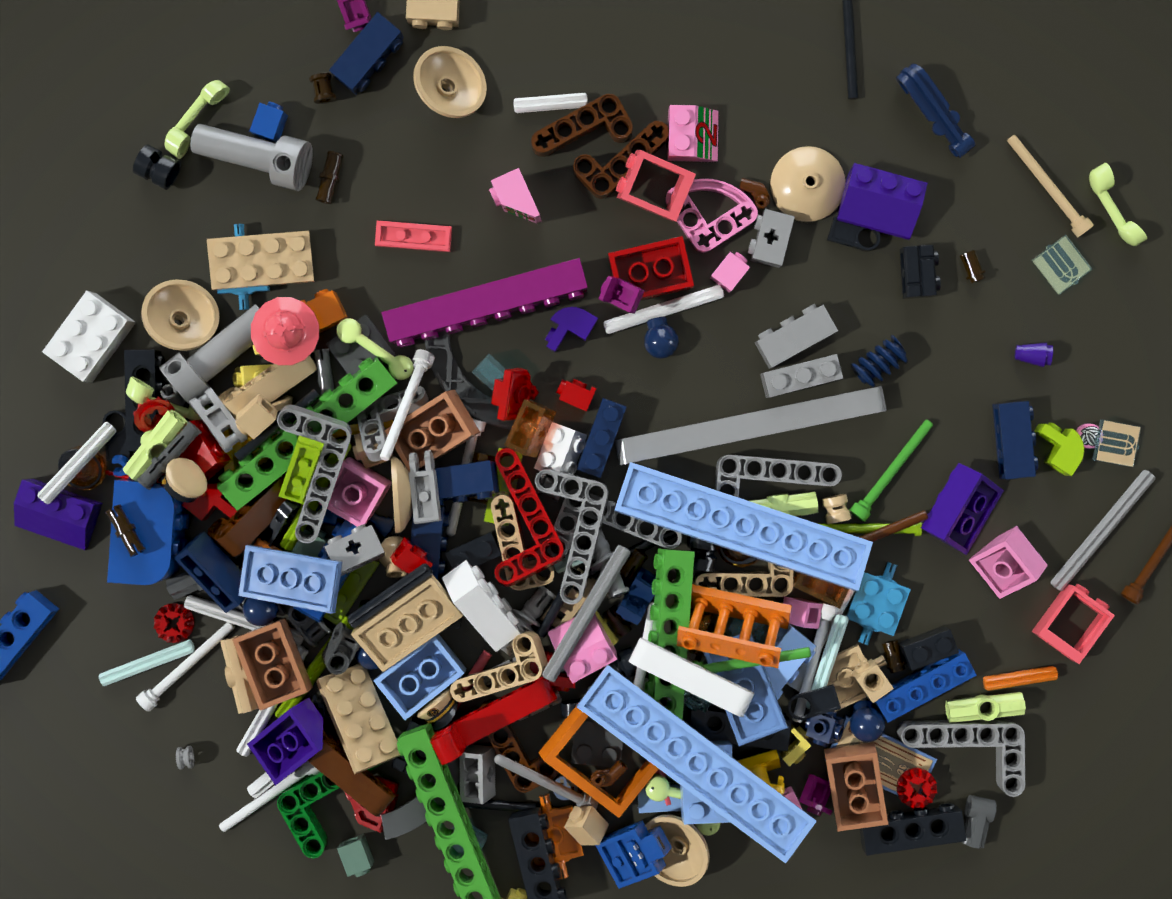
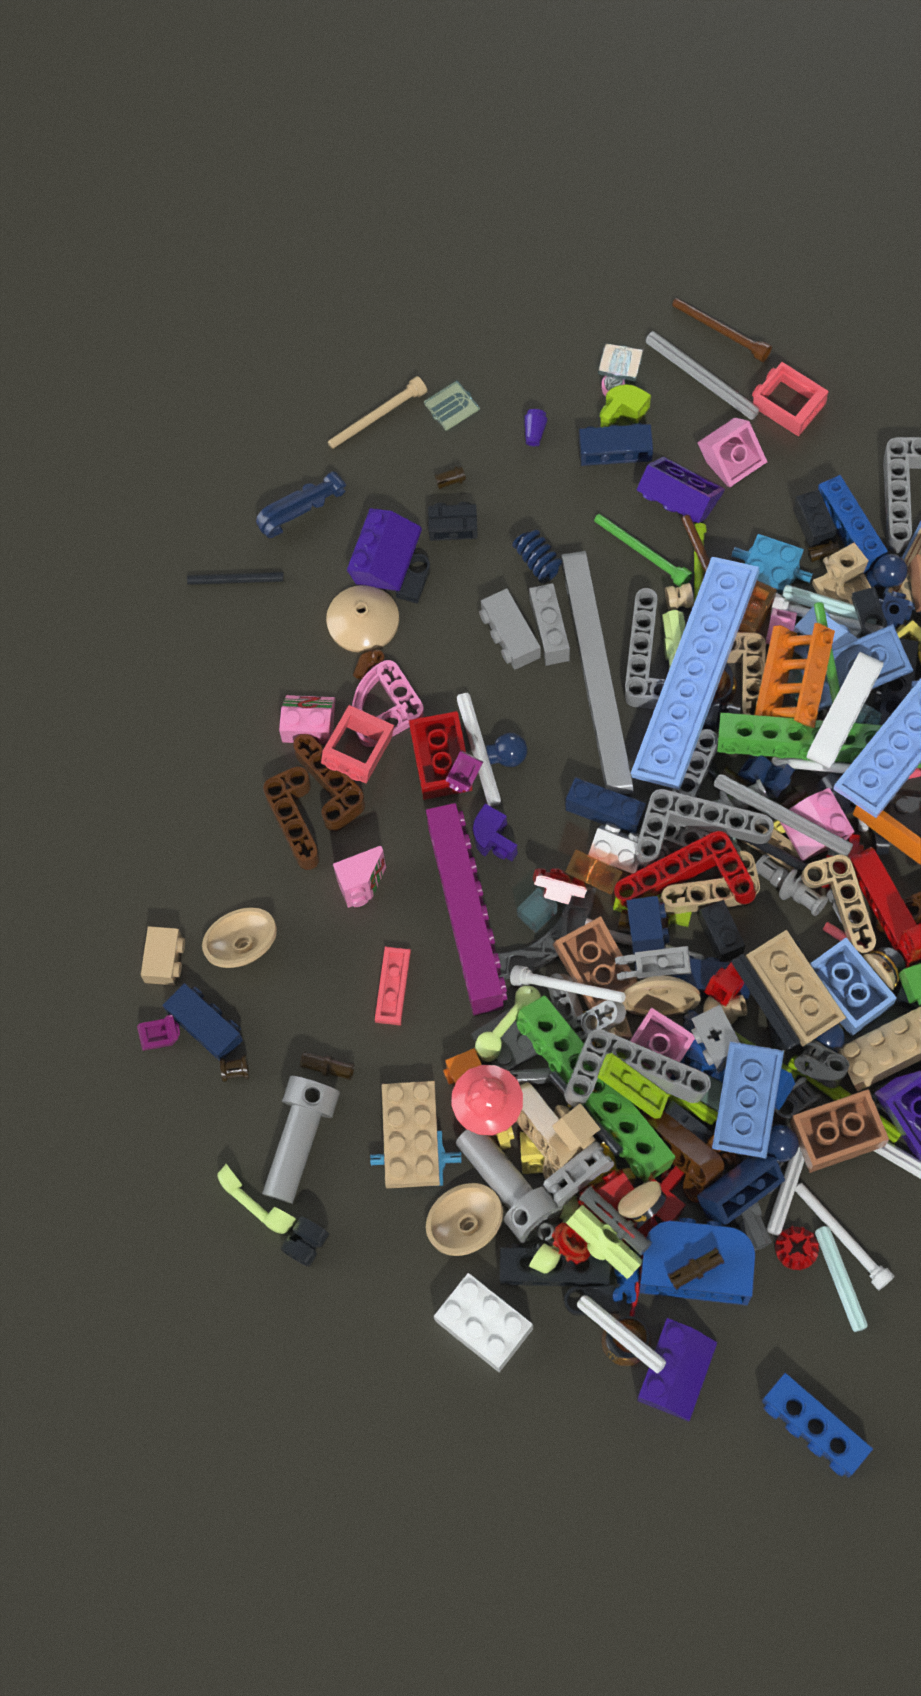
camera: 85 degrees left, 20 degrees down
(237, 678) = (851, 1176): tan piece -> none
(269, 122) = (265, 1123): blue brick -> none
(481, 605) = (774, 914): white brick -> none
(551, 102) = (266, 848): white axle -> none
(576, 394) = (561, 829): red brick -> none
(730, 271) = (444, 685): bright pink brick -> none
(780, 226) = (414, 648): light grey brick -> none
(1000, 706) = (870, 461): yellowish green piece -> none
(1020, 678) = (843, 445): orange axle -> none
(1101, 180) = (376, 370): yellowish green piece -> none

